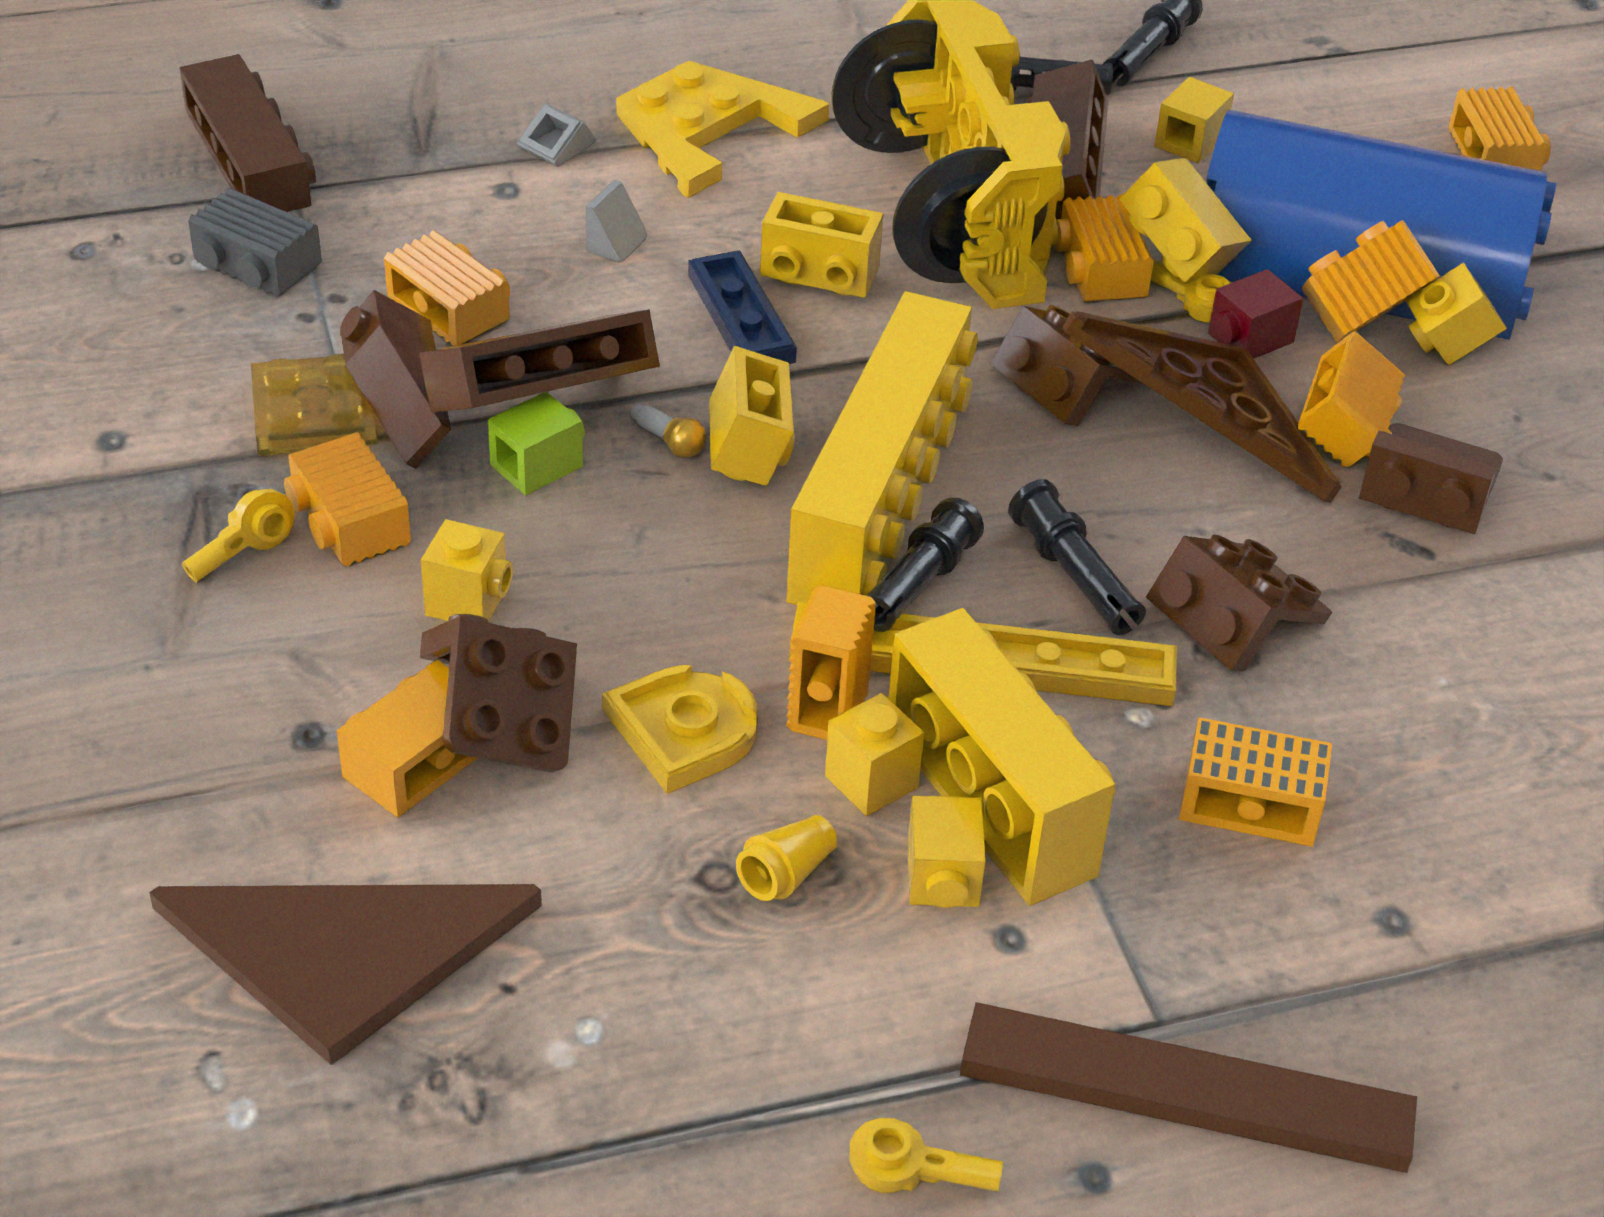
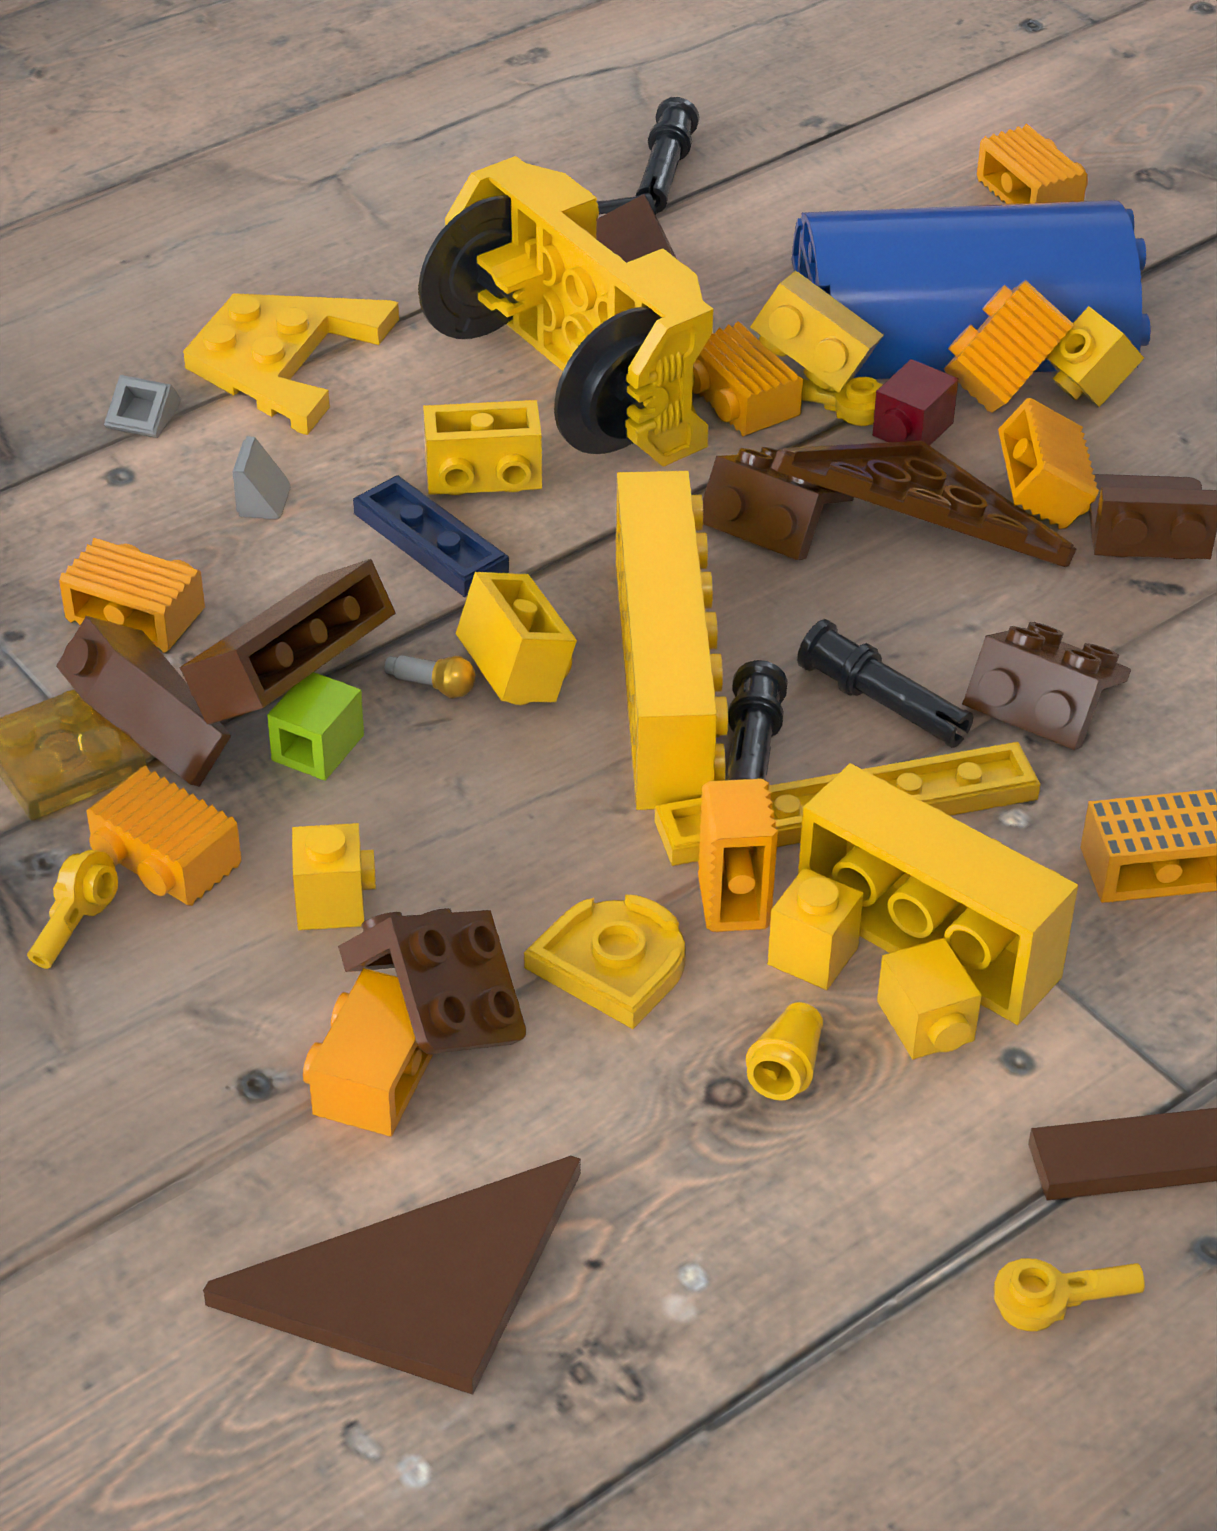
camera: 20 degrees left, 0 degrees up
(1192, 119) = (753, 229): yellow brick -> none

